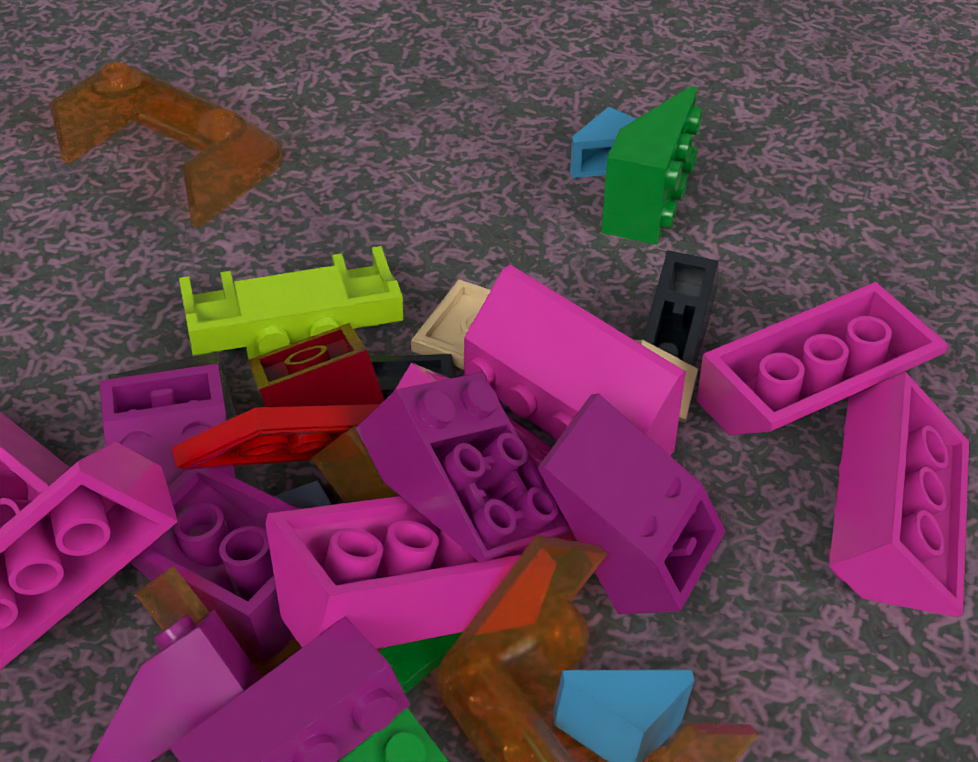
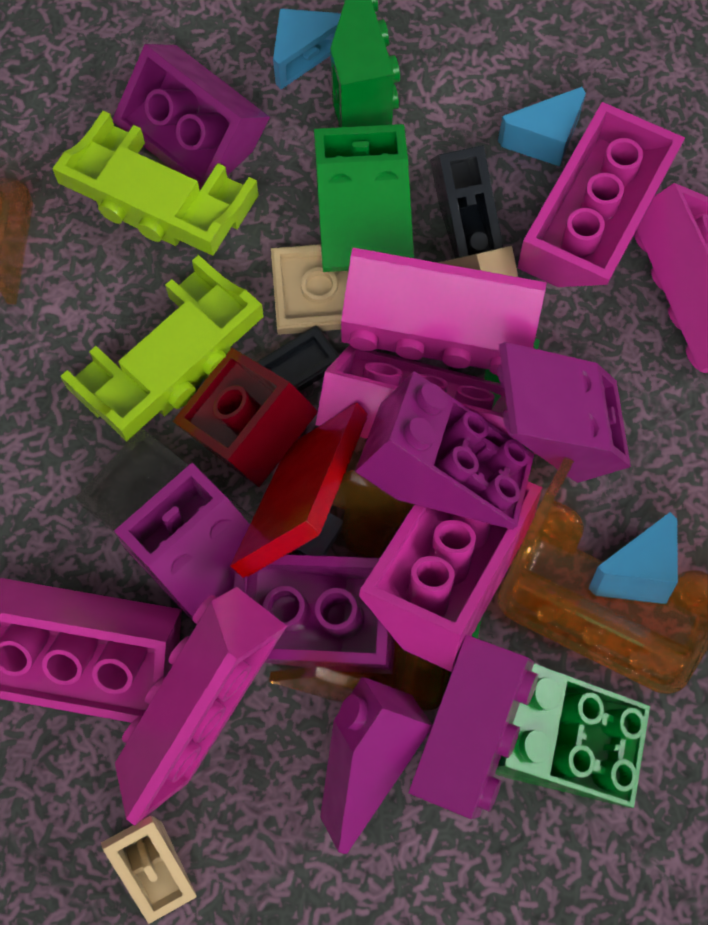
camera: 30 degrees left, 25 degrees up
(382, 196) = (149, 194): none -> lime bracket
(465, 155) = (188, 113): none -> magenta slope
(587, 252) = (362, 192): none -> green slope
(795, 288) = (544, 127): none -> dark azure slope

